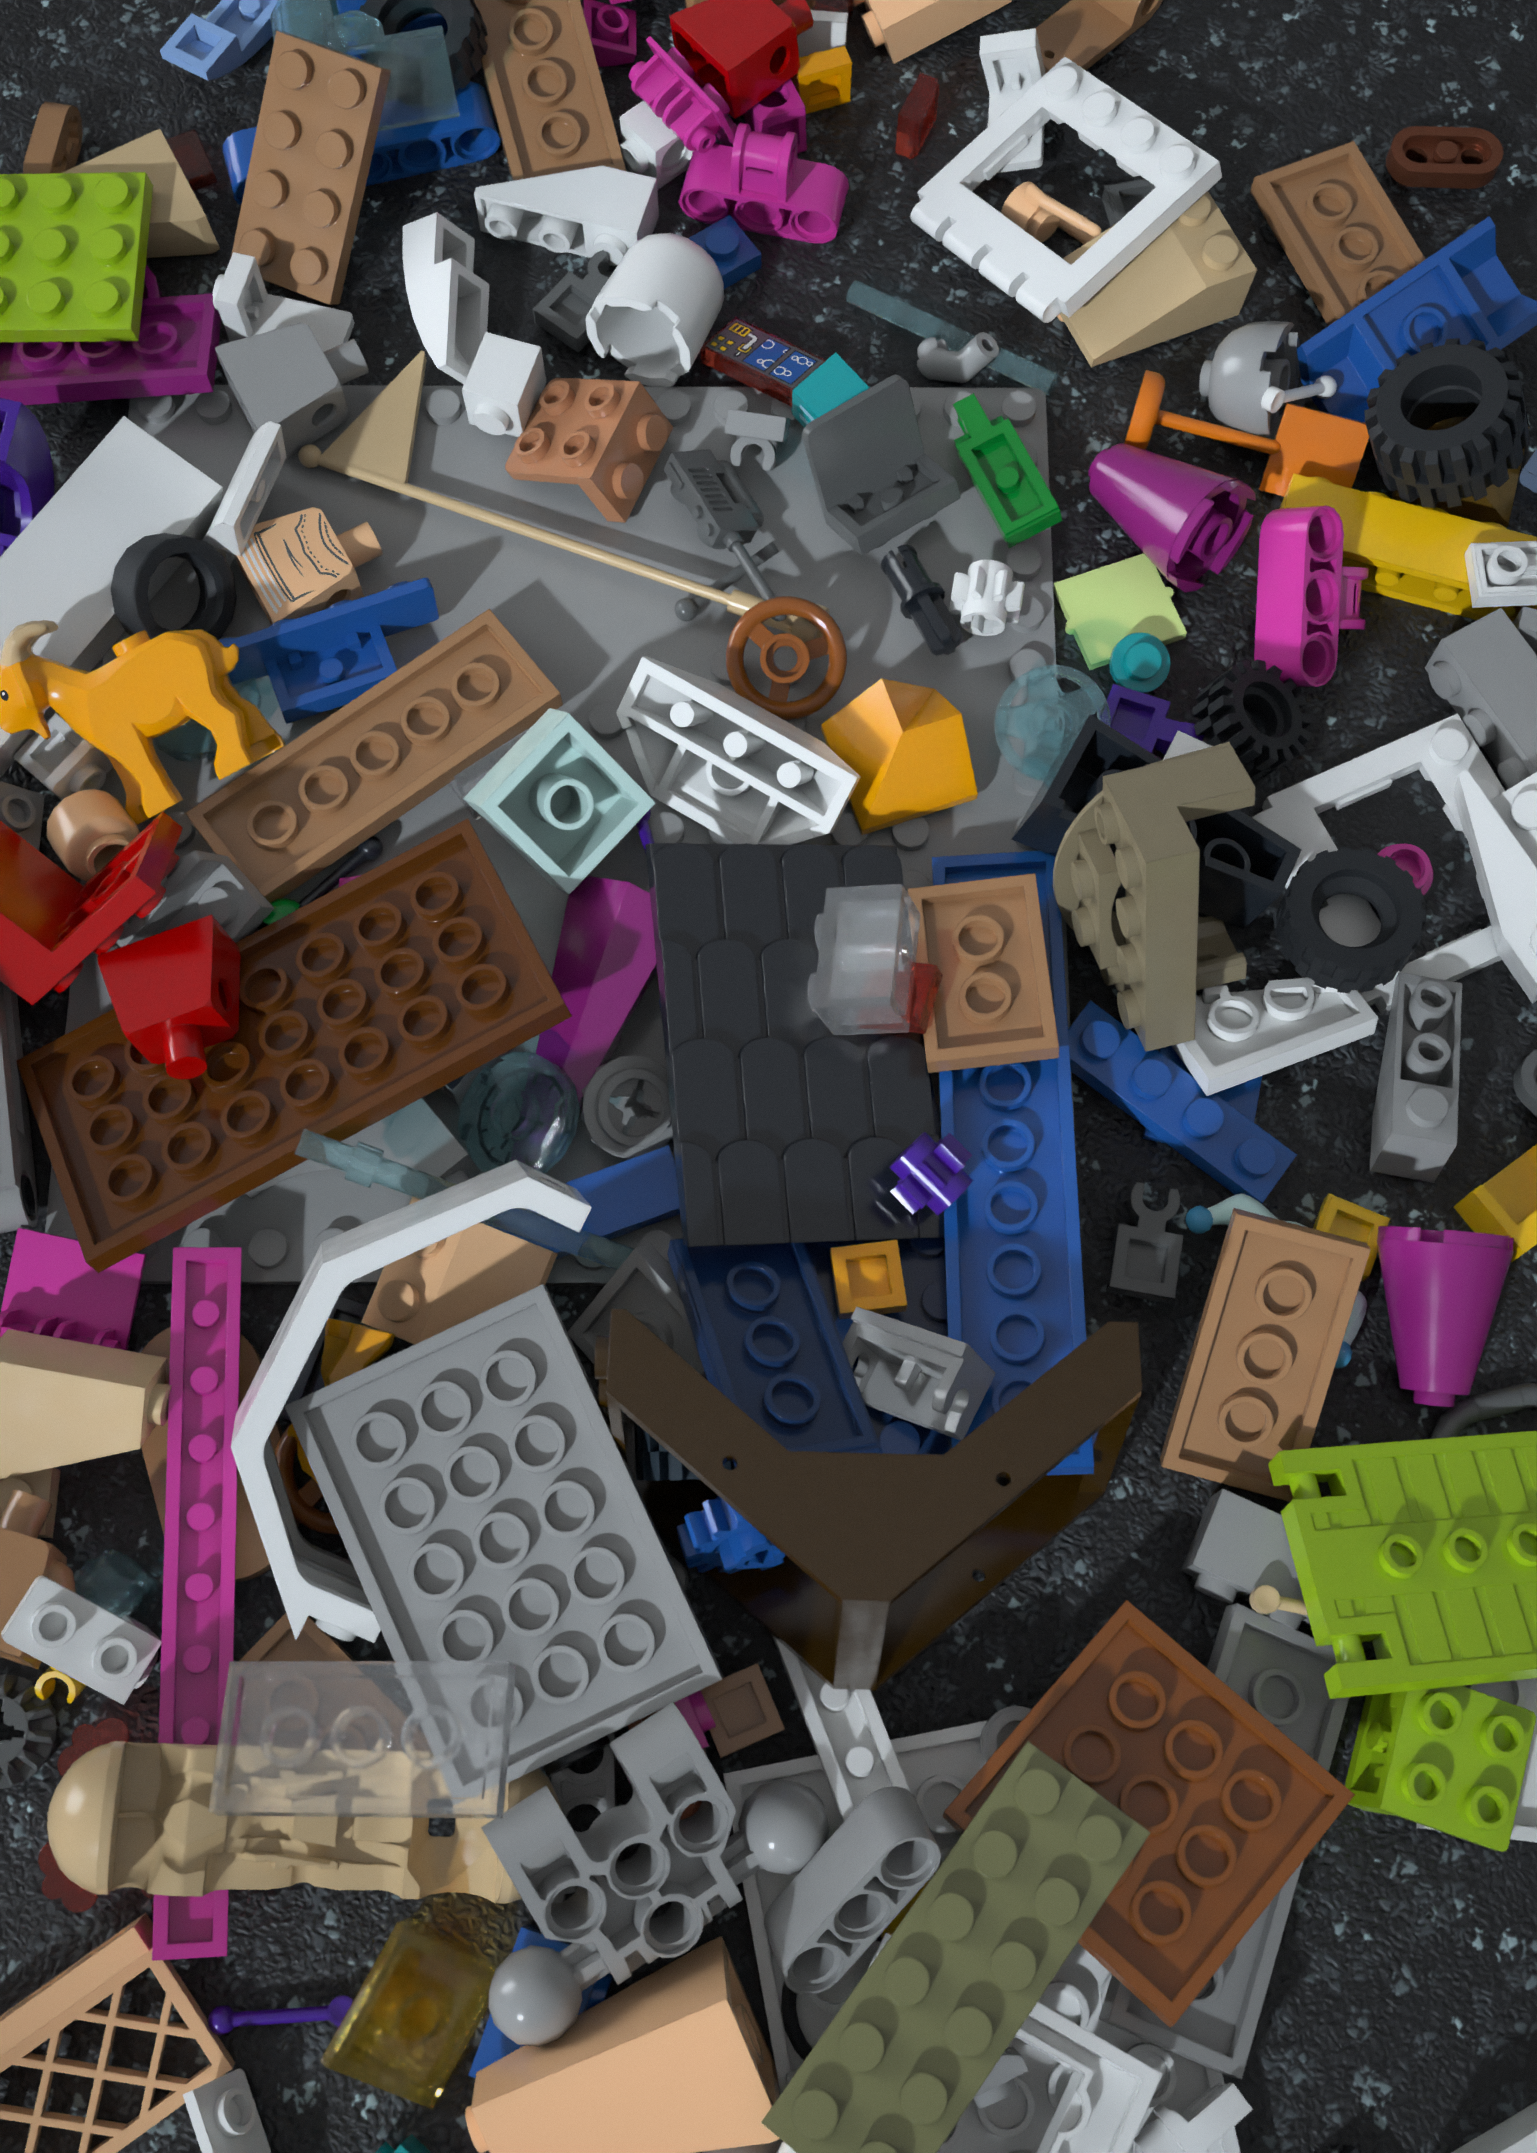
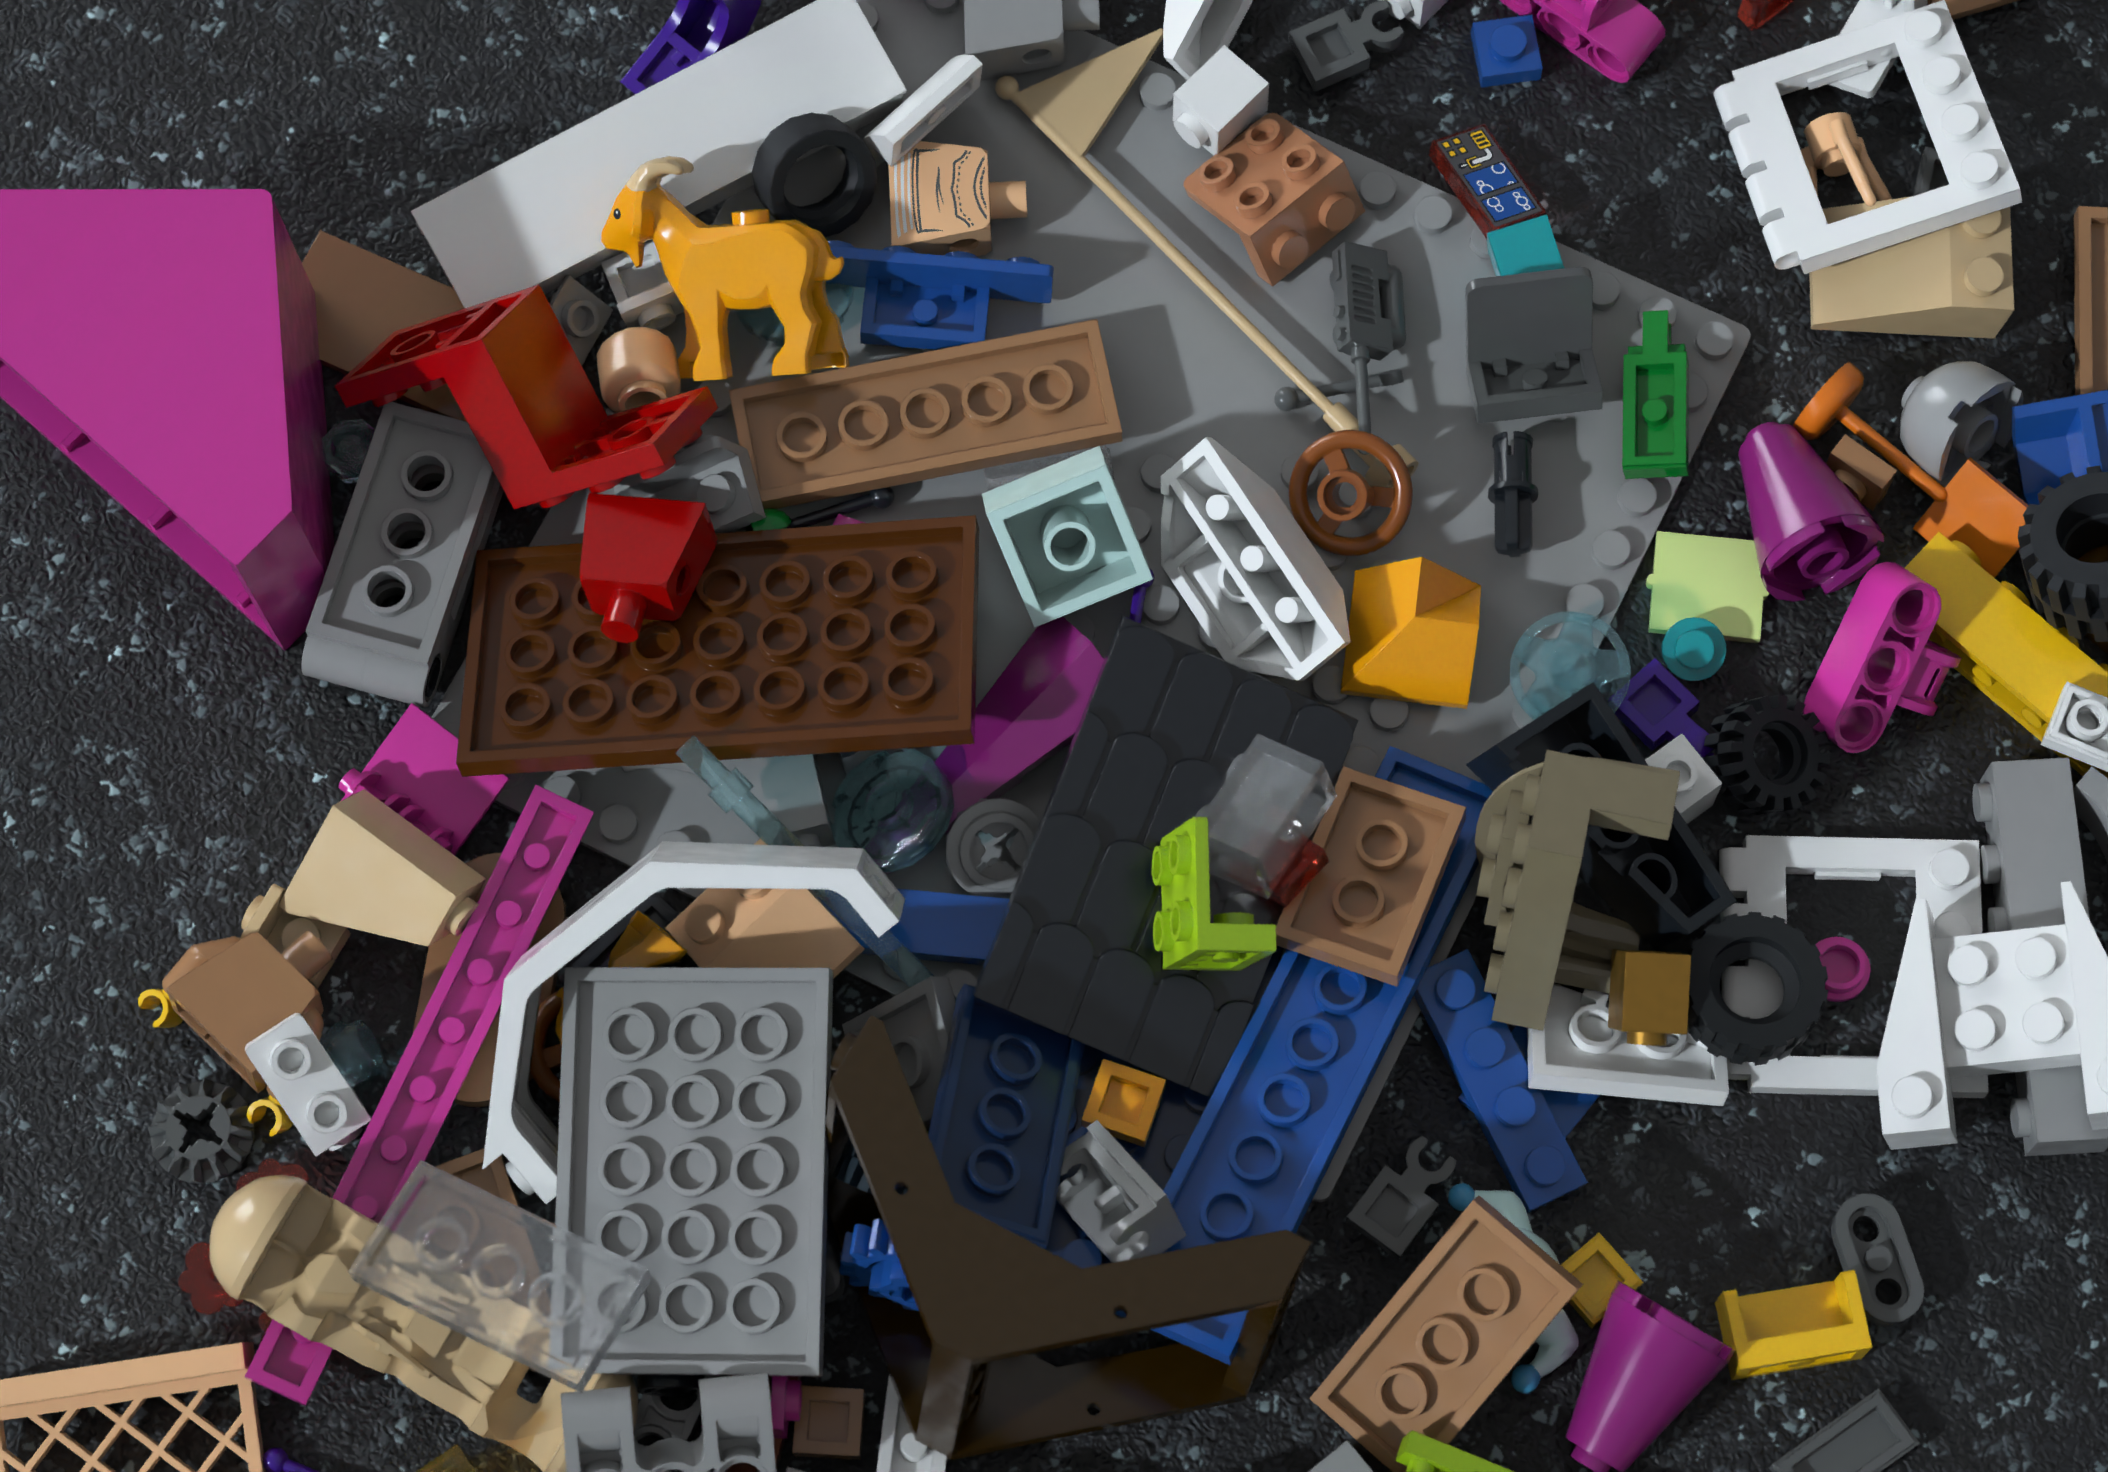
camera: 30 degrees right, 0 degrees up
(657, 308) = (1407, 86): white cylinder -> none
(758, 430) = (1441, 250): light grey tile -> none
(849, 1079) = (1184, 923): none -> lime bracket
(931, 1173) = (1222, 1034): dark purple gear -> none
(952, 366) = (1680, 272): light grey arm -> none
(956, 338) = (1689, 237): clear light blue bar -> none
(986, 597) = (1573, 519): white gear -> none
(1200, 450) = (1861, 471): none -> medium nougat plate
(1272, 964) = (1649, 995): none -> pearl gold brick
(1274, 397) = (1949, 451): white hinge -> none
(1418, 1080) = (1739, 1164): light grey slope -> none

